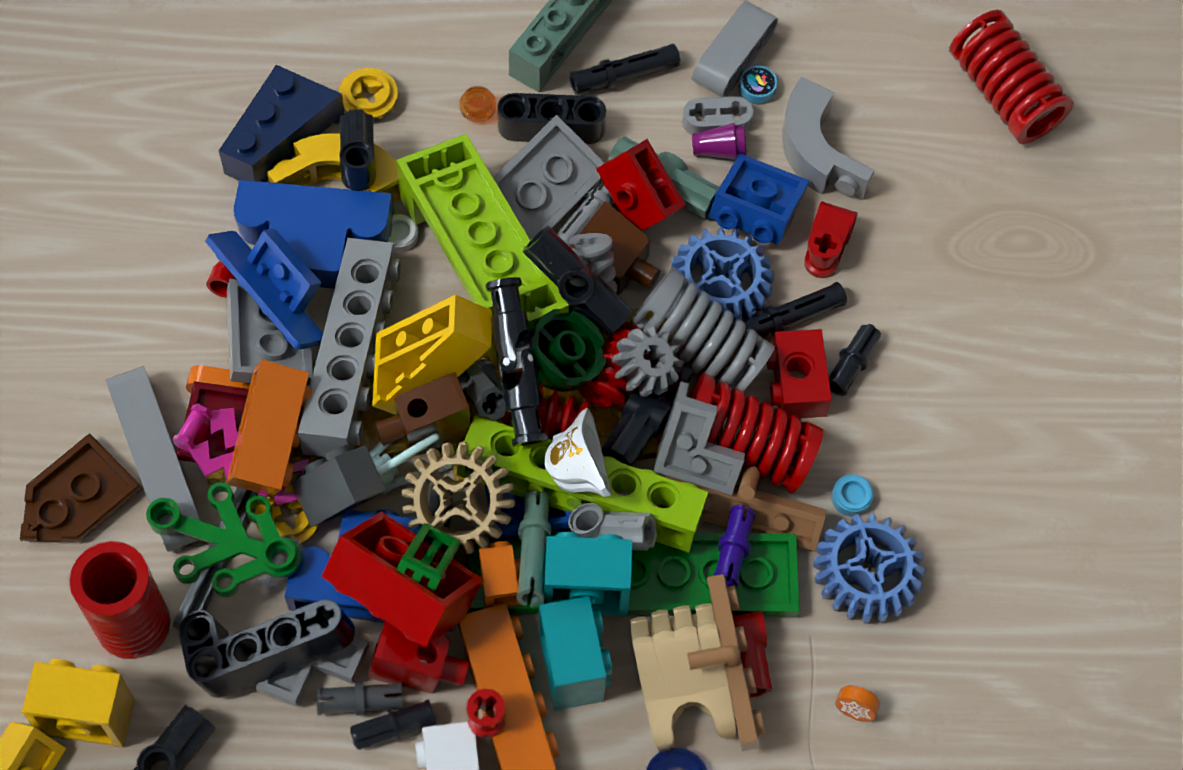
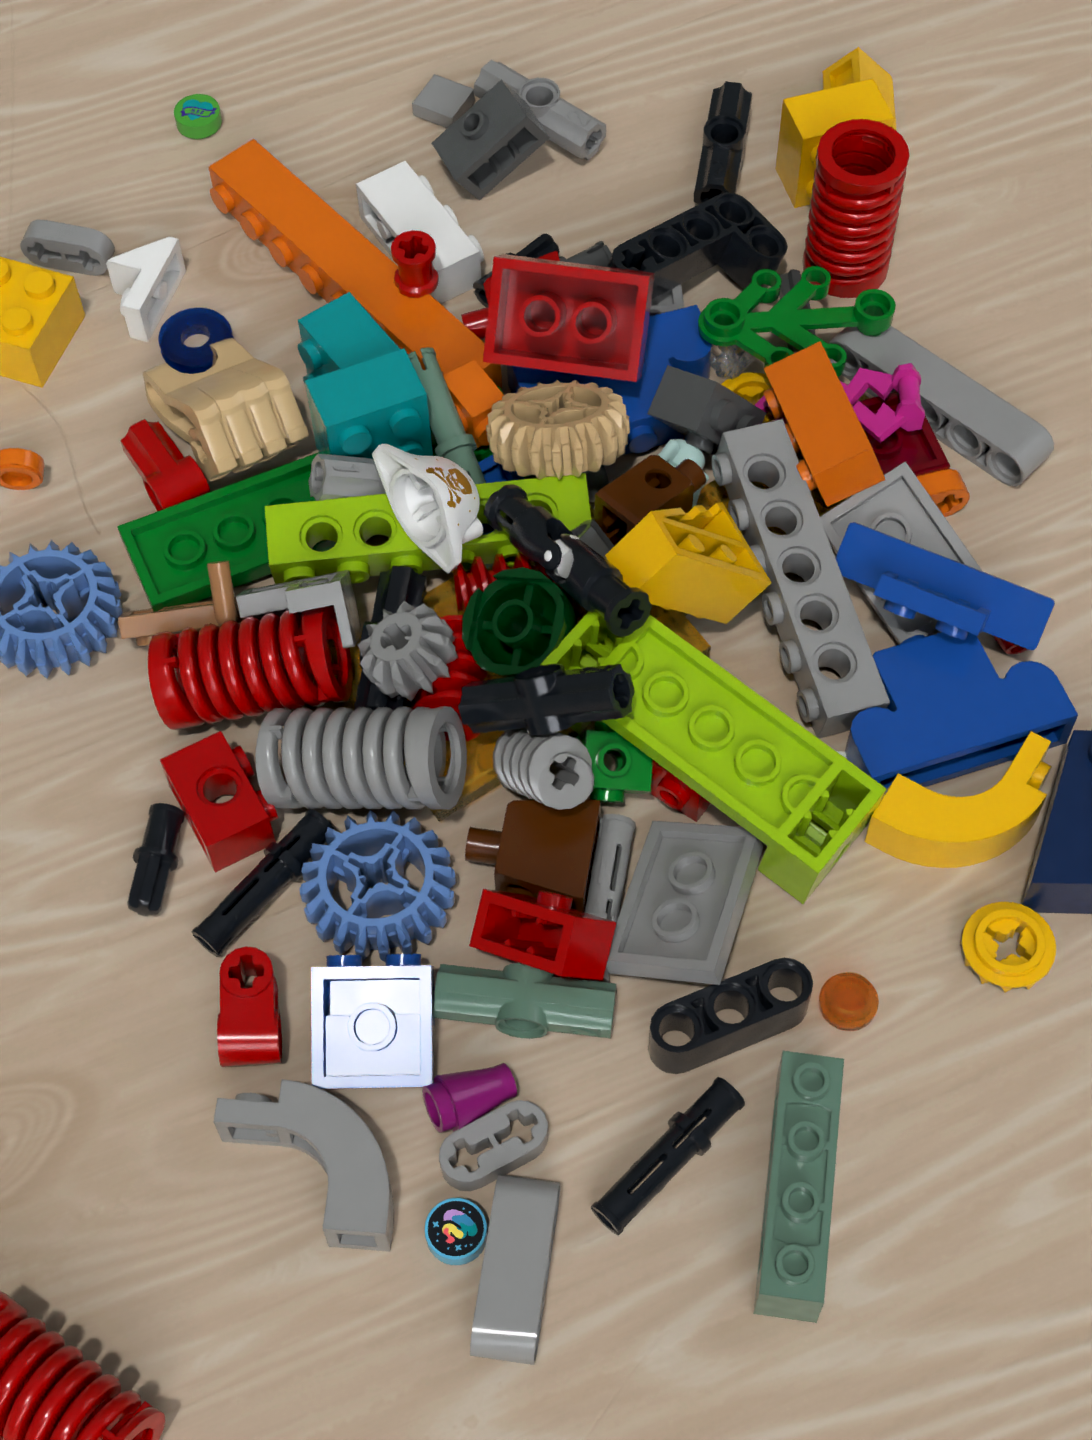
camera: 160 degrees right, 5 degrees down
(75, 494) = (998, 339): reddish brown tile -> none
(357, 150) = (954, 801): black piece -> none
(423, 567) = (554, 372): green tile -> none
(732, 643) = (156, 400): medium nougat plate -> none
(735, 544) = (216, 538): dark purple pin -> none
(852, 495) = (100, 696): medium azure tile -> none

